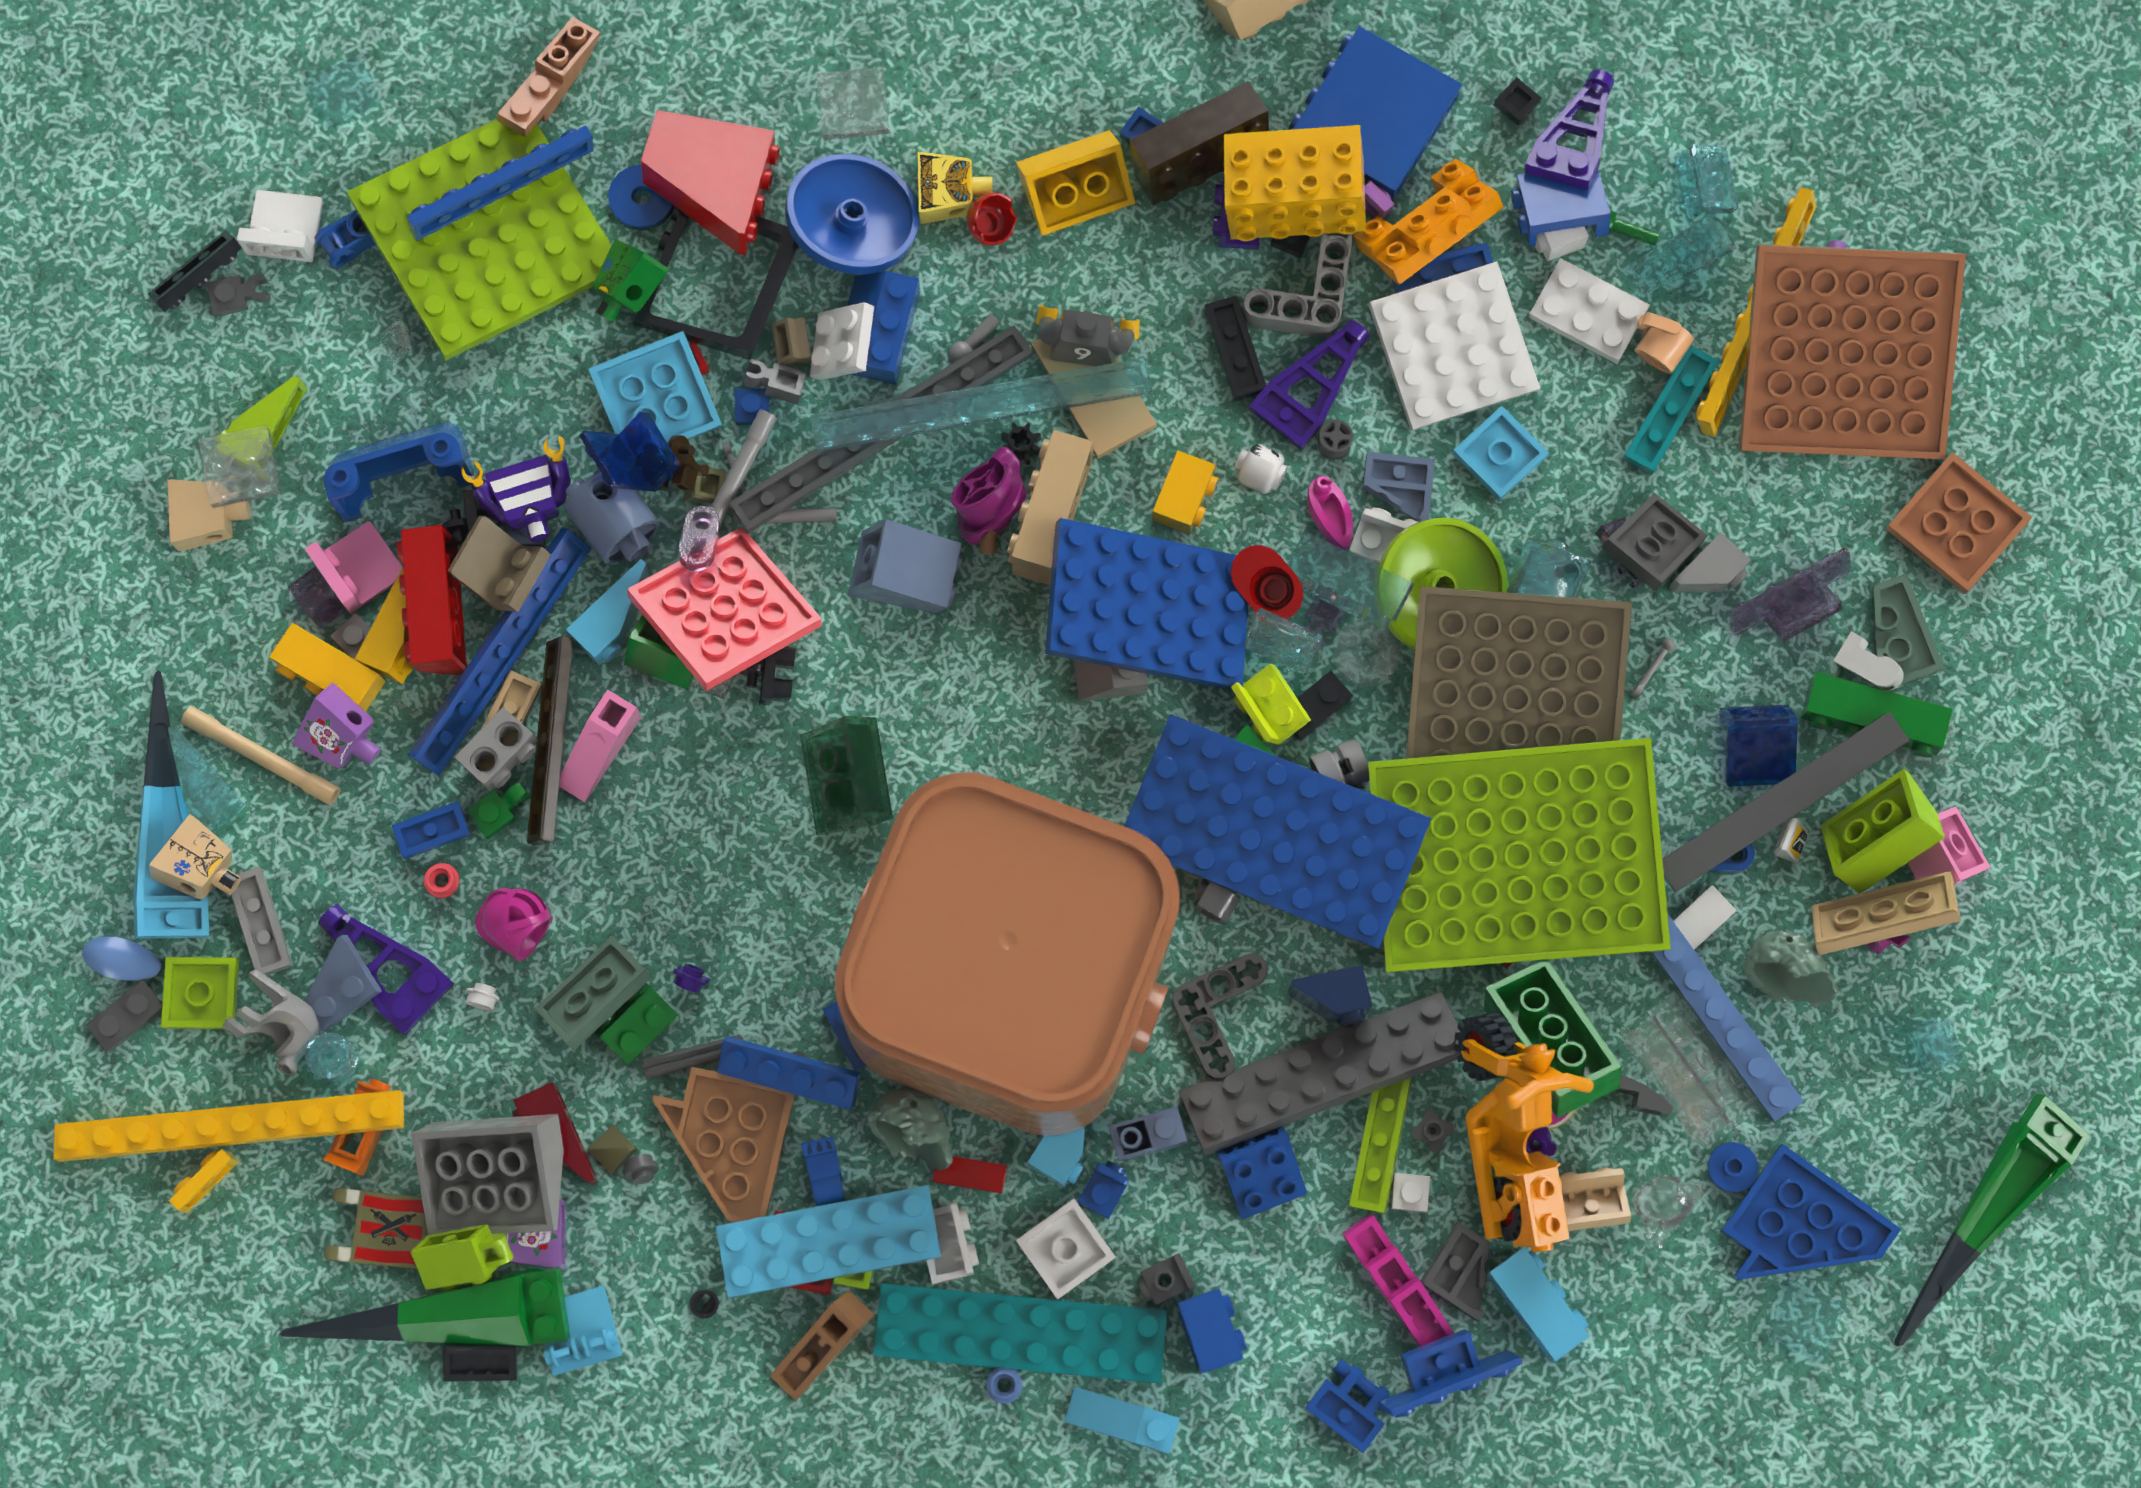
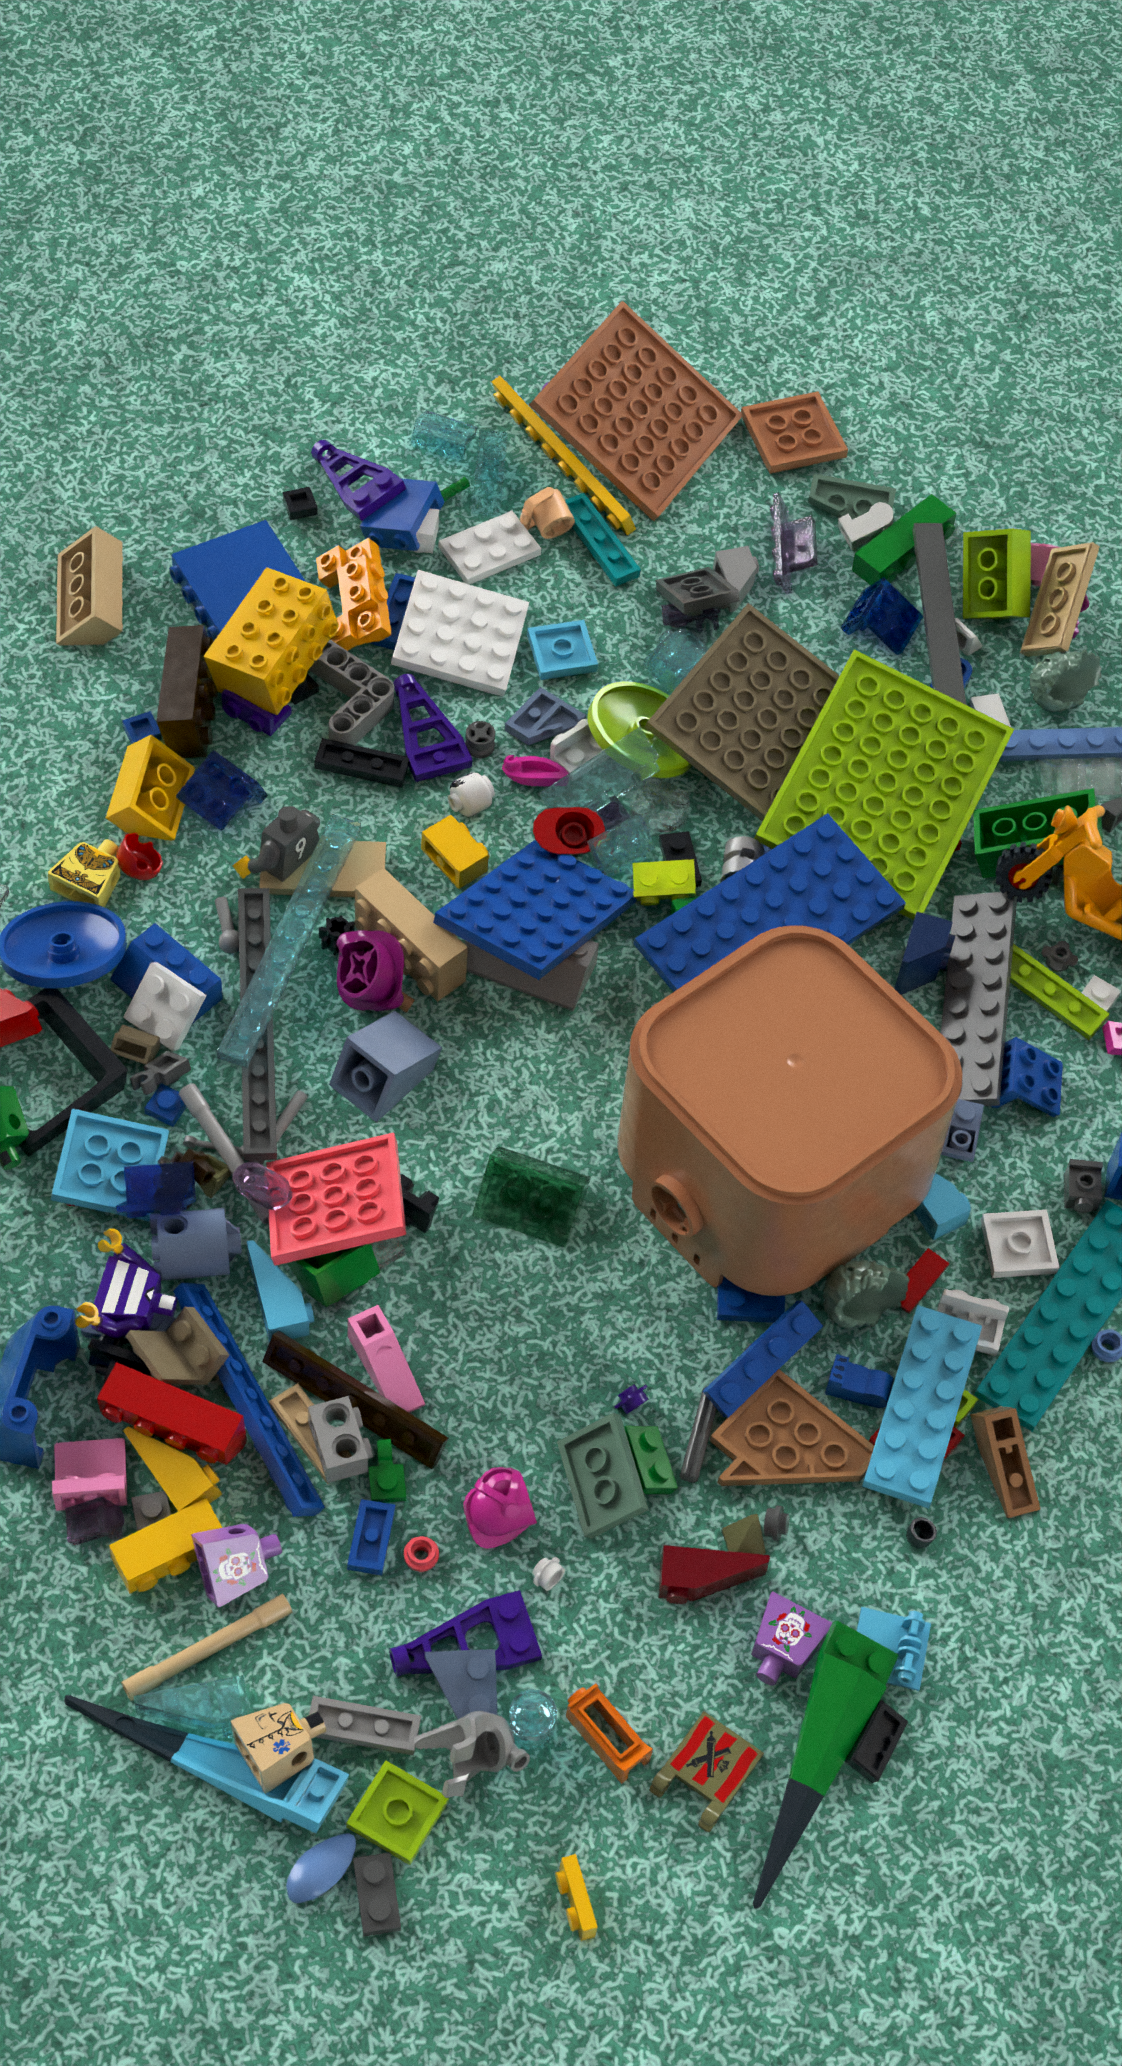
camera: 65 degrees left, 20 degrees down
(229, 1126) = (540, 1848): yellow plate -> none
(460, 1257) = (780, 1695): lime brick -> none
(491, 1173) = (721, 1634): light grey slope -> none
(1104, 1189) = (983, 1191): blue bracket -> none
(1115, 242) = (219, 790): none -> clear blue bracket

